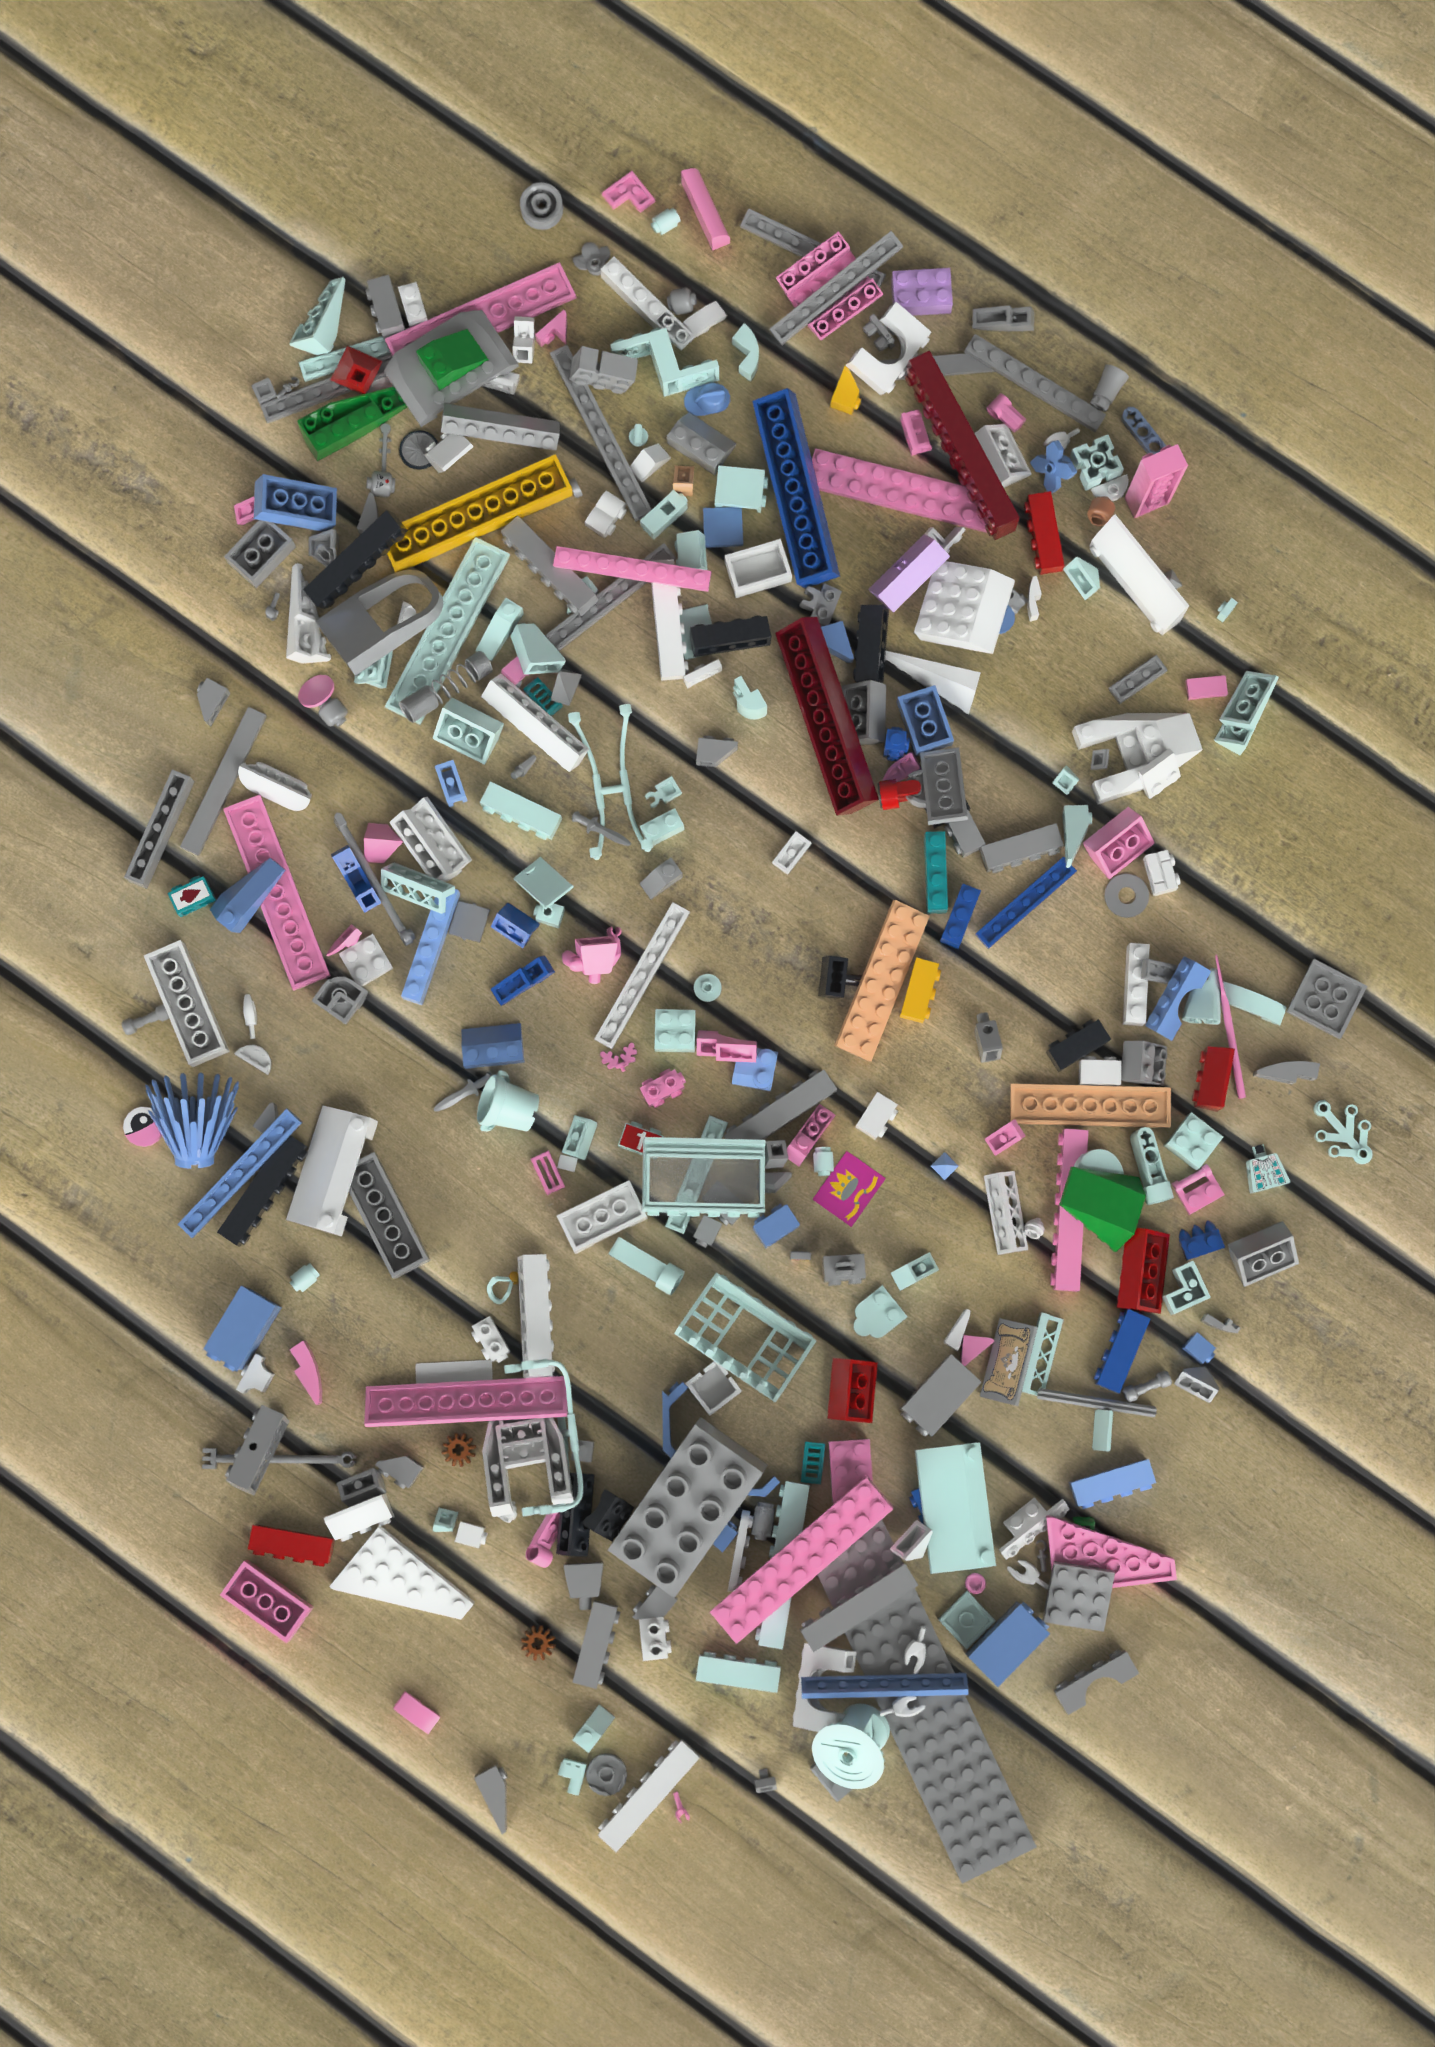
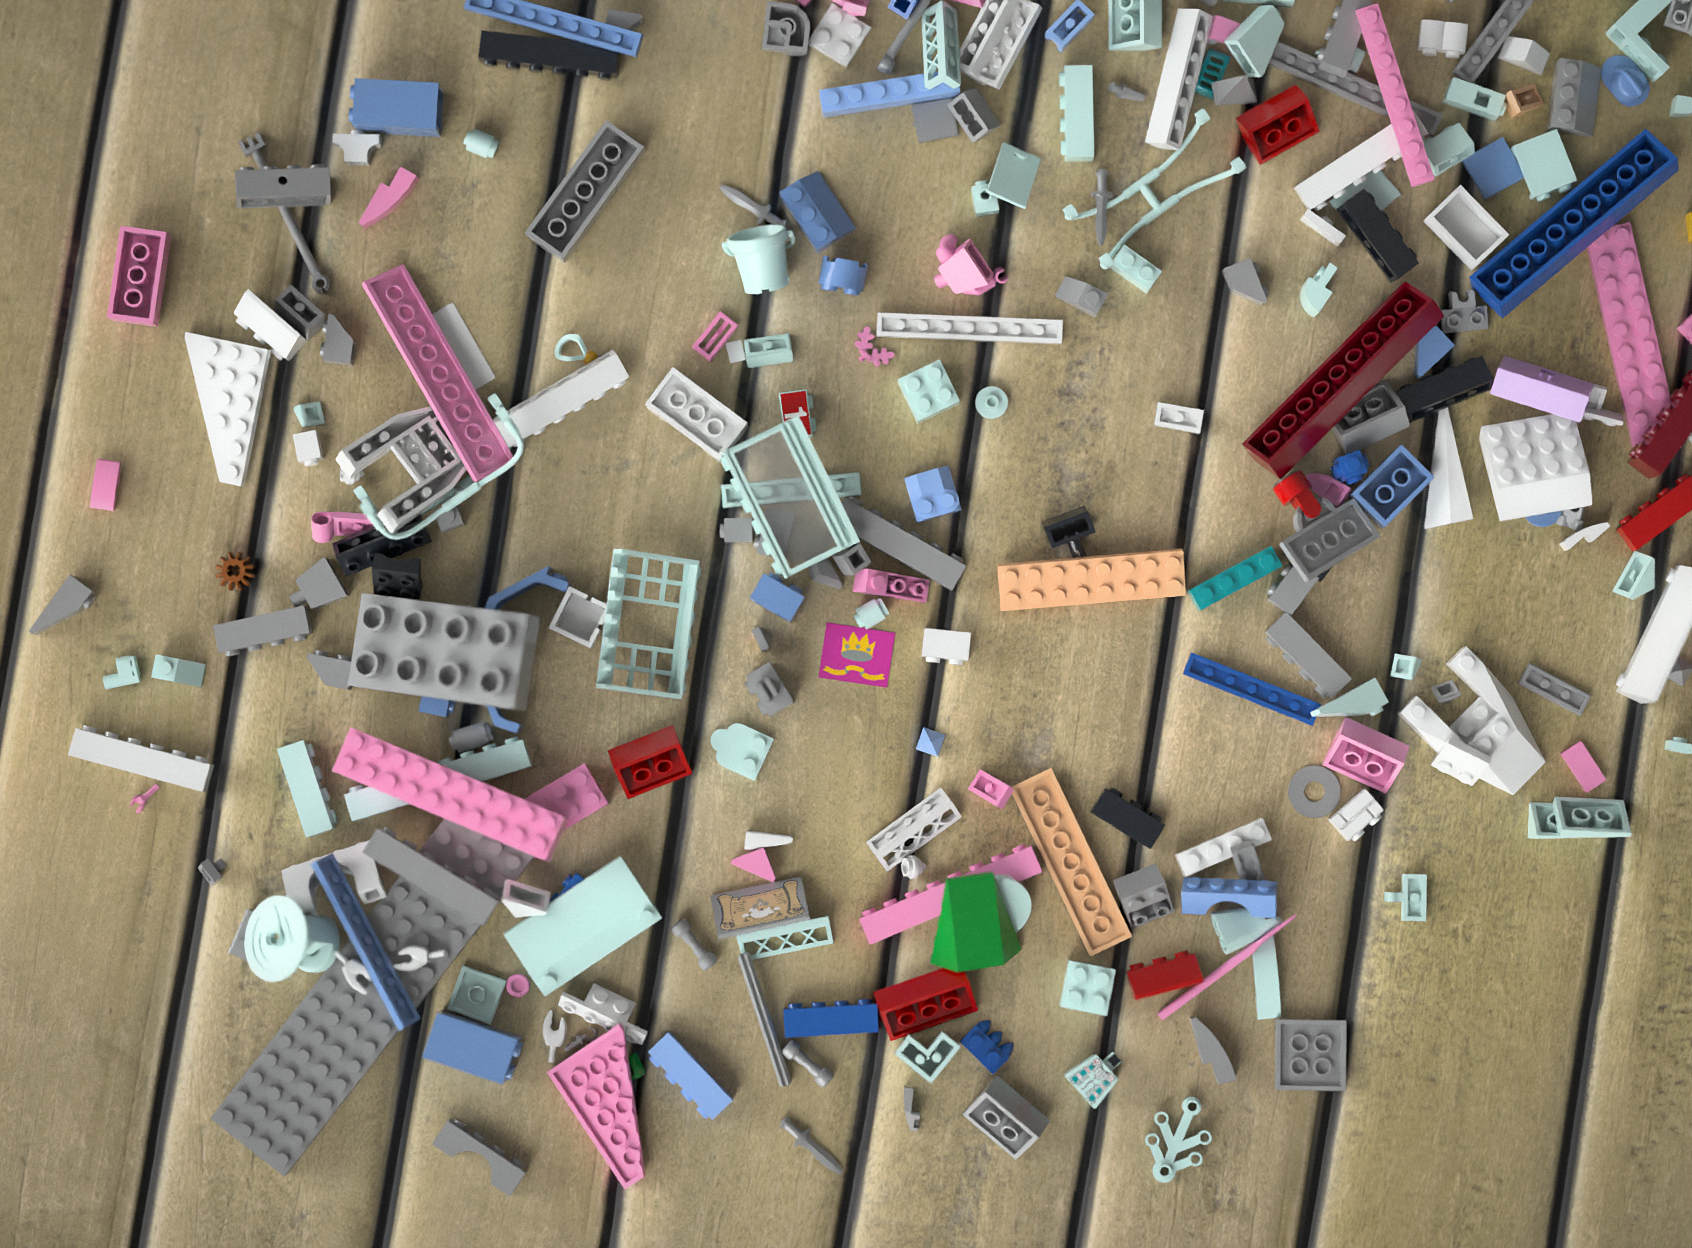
camera: 65 degrees right, 5 degrees up
(291, 1544) = (207, 270): red brick -> none
(330, 1169) = (604, 111): white slope -> none
(464, 1454) = (390, 383): dark orange gear -> none
(480, 889) = (974, 114): none -> light grey brick
(491, 1339) = (514, 366): white brick -> none
(514, 925) = (955, 169): blue panel -> none
(522, 980) = (901, 207): blue slope -> none
(552, 1049) = (843, 275): none -> medium blue brick
(606, 1774) = (140, 707): light grey tile -> none
(607, 667) = (1278, 124): none -> red slope
(638, 436) = (1546, 28): light aqua plate -> none
(654, 1638) = (298, 686): white brick -> none
(666, 791) = (1177, 253): light aqua plate -> none
(666, 1276) = (669, 511): light aqua beam -> none
(668, 1084) = (867, 412): bright pink brick -> none
(725, 1048) = (936, 453): bright pink slope -> none
(741, 1543) = (438, 726): white plate -> none
(813, 1445) = (574, 752): teal slope -> none
(914, 1271) = (804, 765): light aqua slope -> none
(920, 990) = (1101, 625): yellow brick -> none
(939, 1396) = (688, 853): light grey brick -> none
(960, 916) = (1201, 627): blue brick -> none
(987, 1039) = (1080, 724): light grey torso -> none
(1027, 1424) = (682, 930): none -> light grey piece
(1078, 1596) = (557, 1096): light grey plate -> none
(1099, 1072) = (1110, 854): white brick -> none
(1102, 1430) = (739, 1039): light aqua slope -> none
(1156, 1188) = (1017, 972): light aqua beam -> none
(1198, 1382) = (838, 1114): light grey slope -> none
(1199, 1348) = (873, 1098): medium blue brick -> none
(1201, 1195) = (1036, 1024): bright pink plate -> none
(1204, 1419) = (805, 1140): none -> light grey sword
(1244, 863) = (1412, 897): none -> light aqua plate

